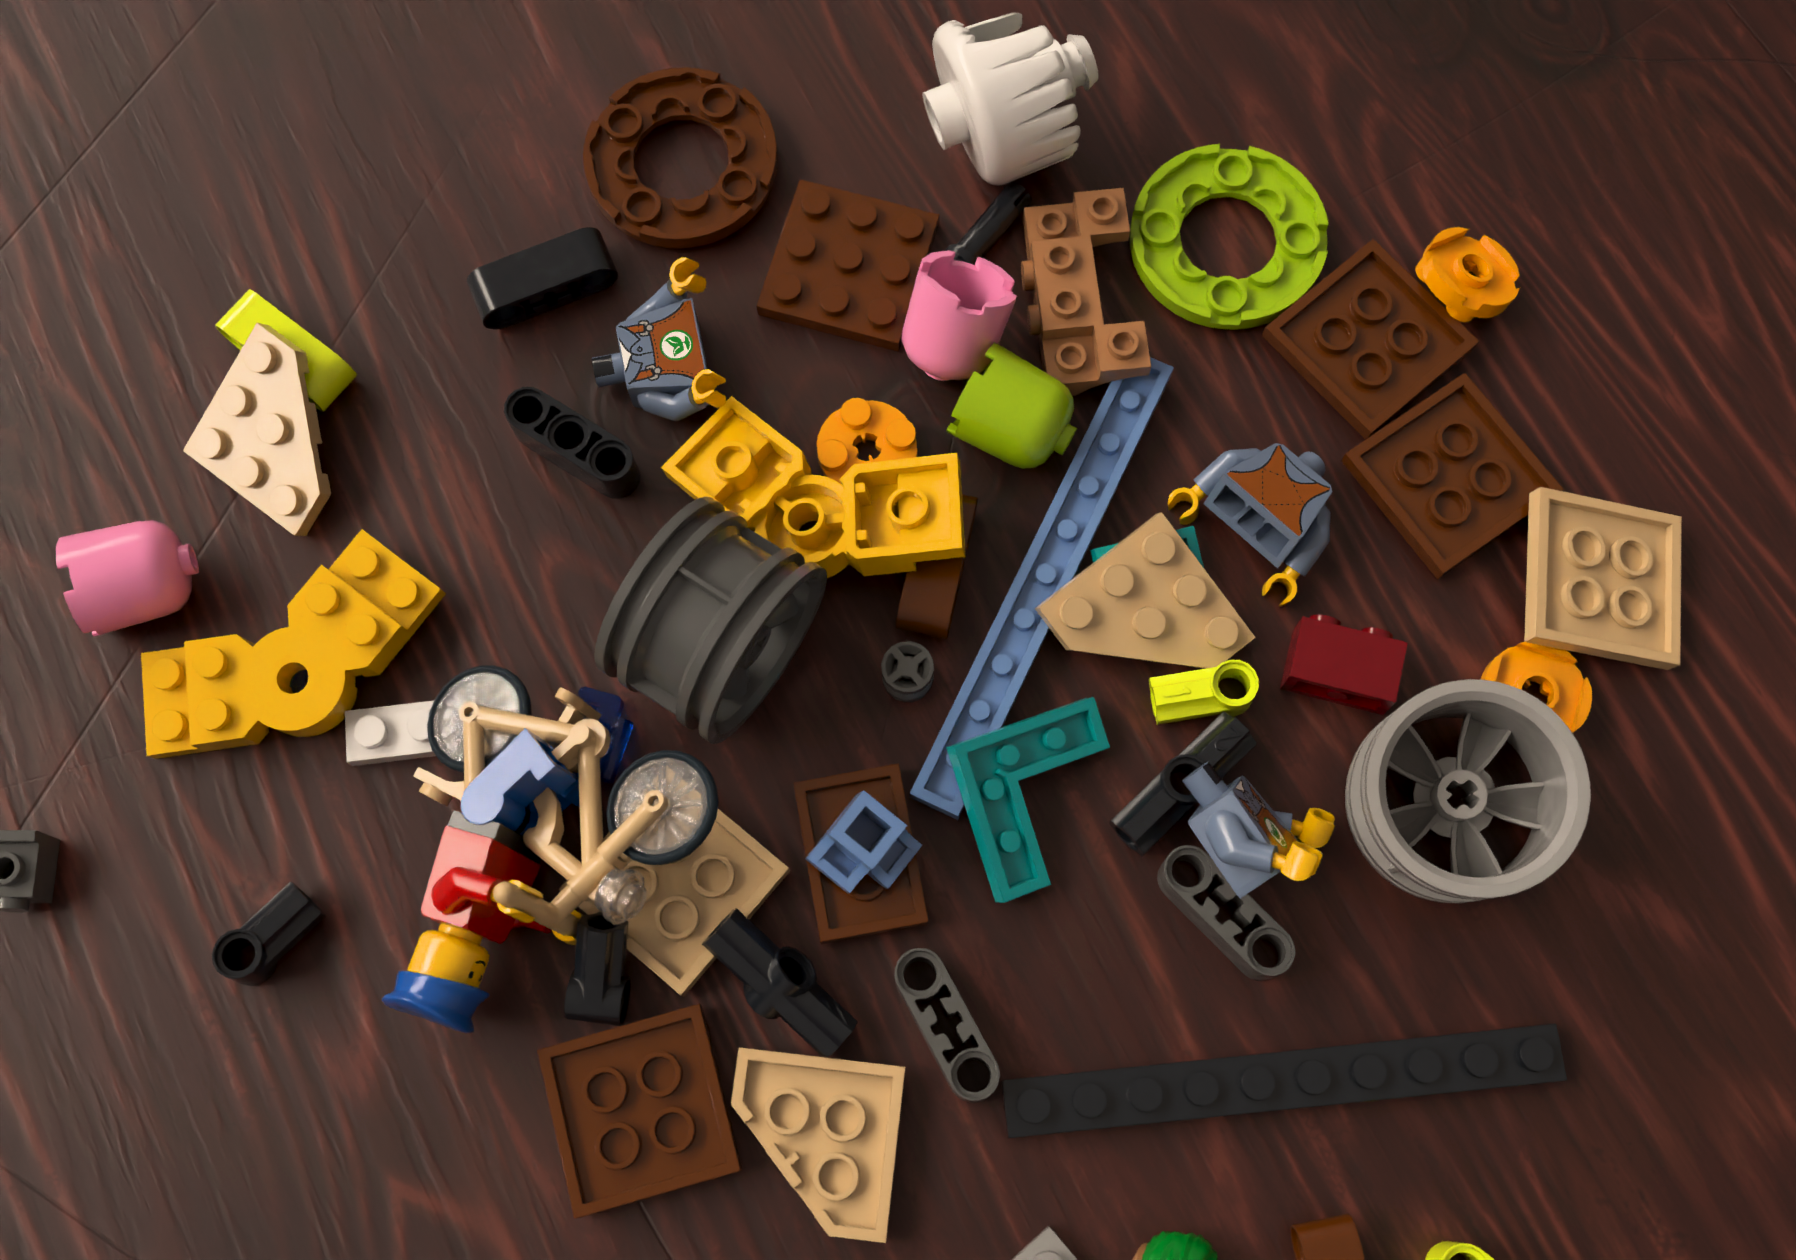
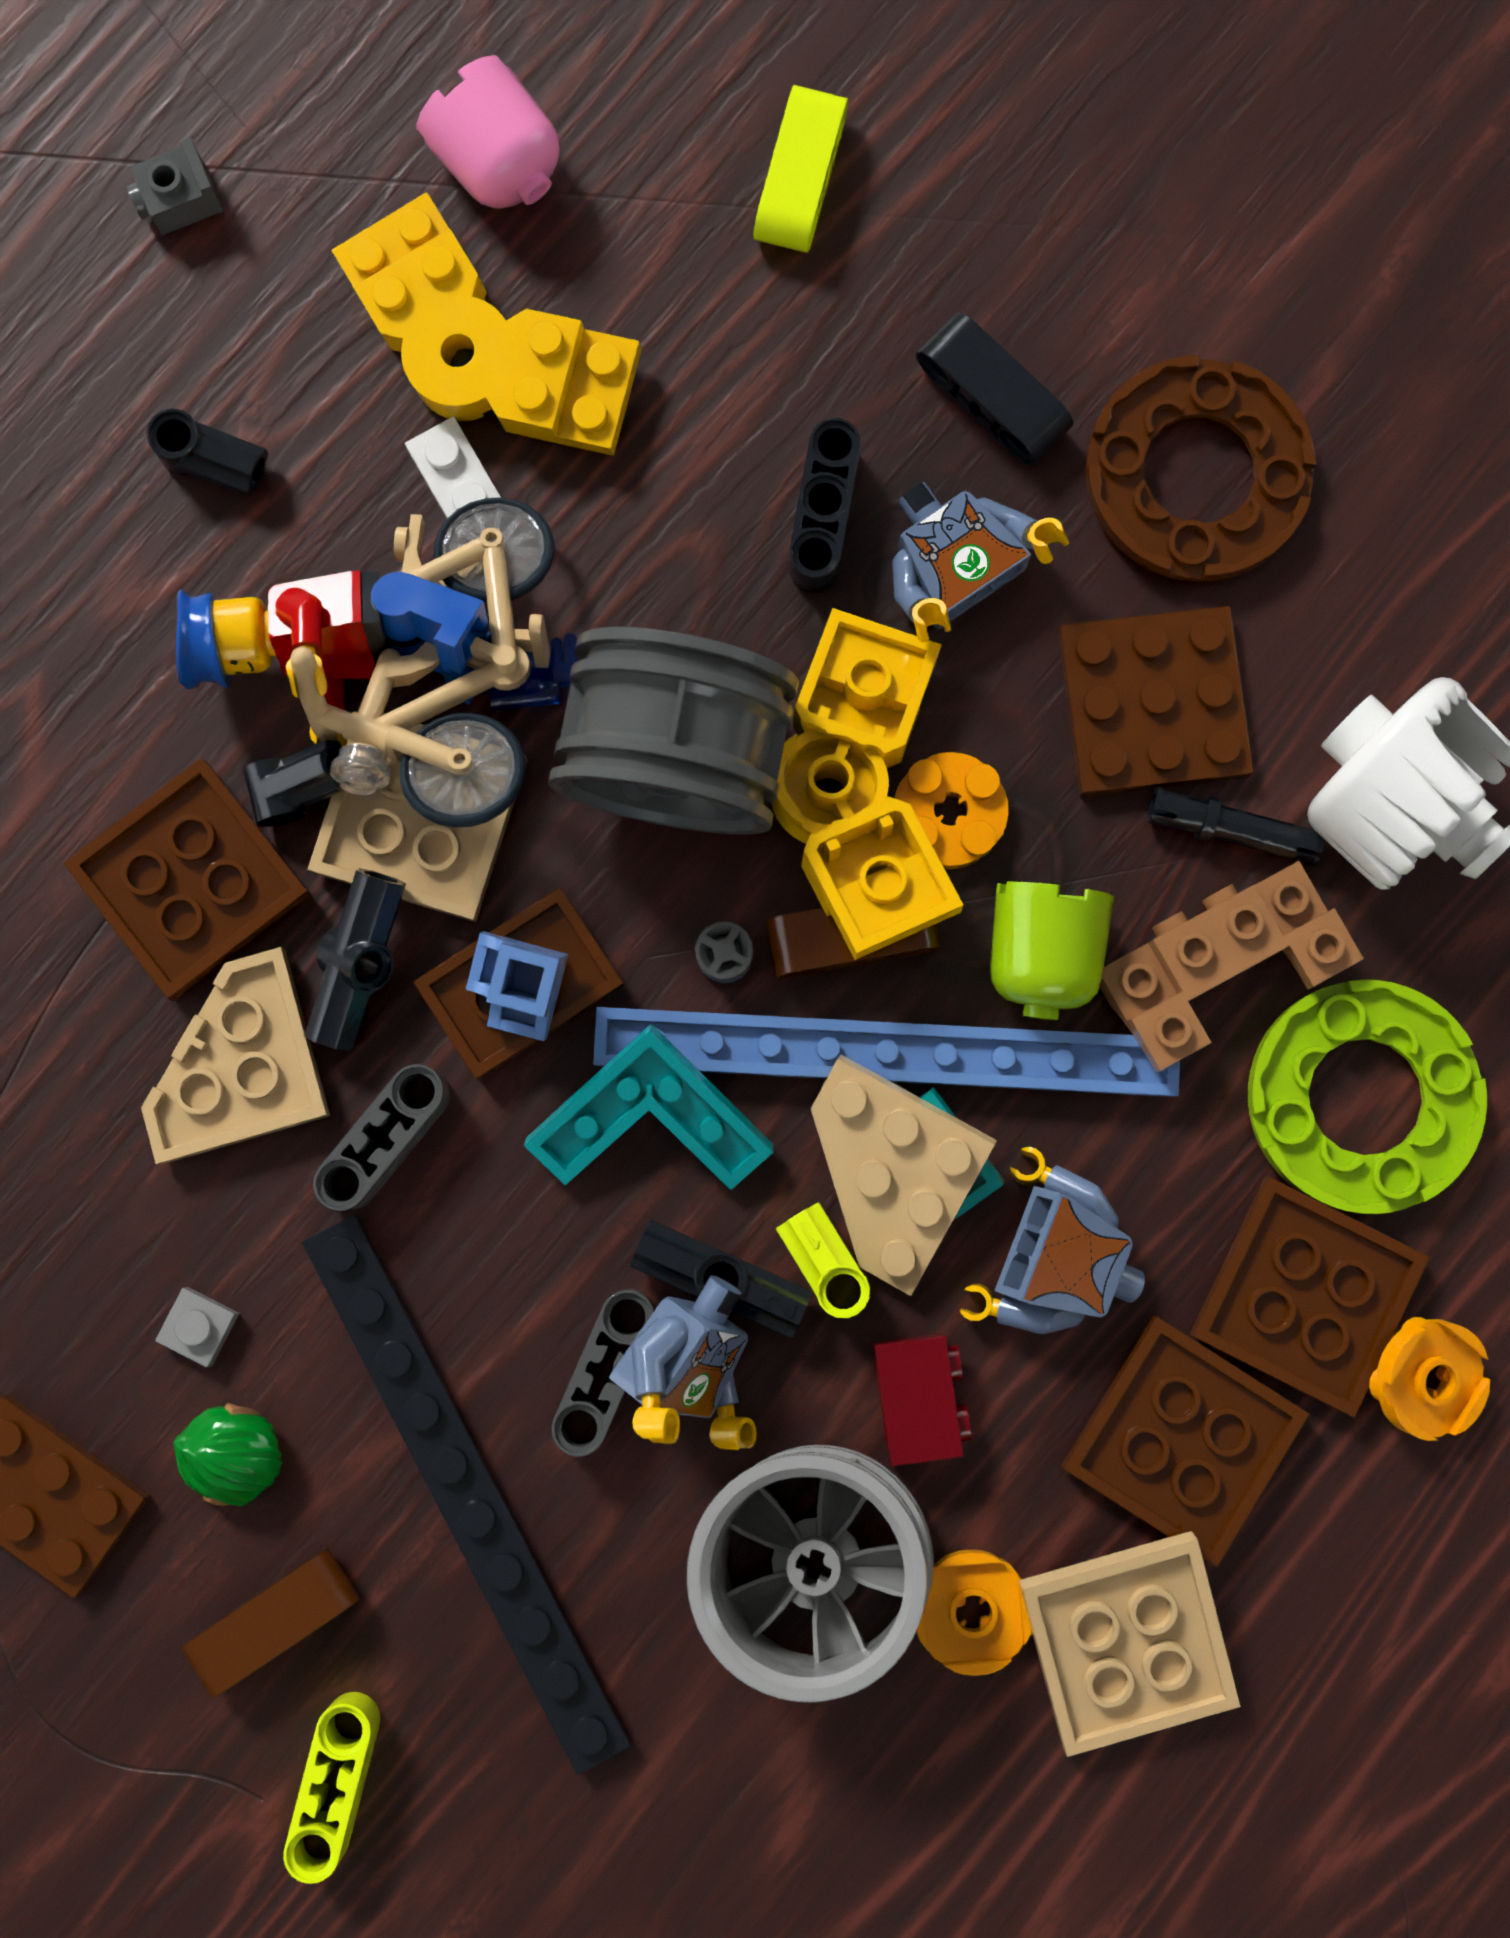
camera: 65 degrees right, 10 degrees up
(266, 433) = (699, 193): plate -> none
(956, 315) = (1130, 839): bright pink cylinder -> none

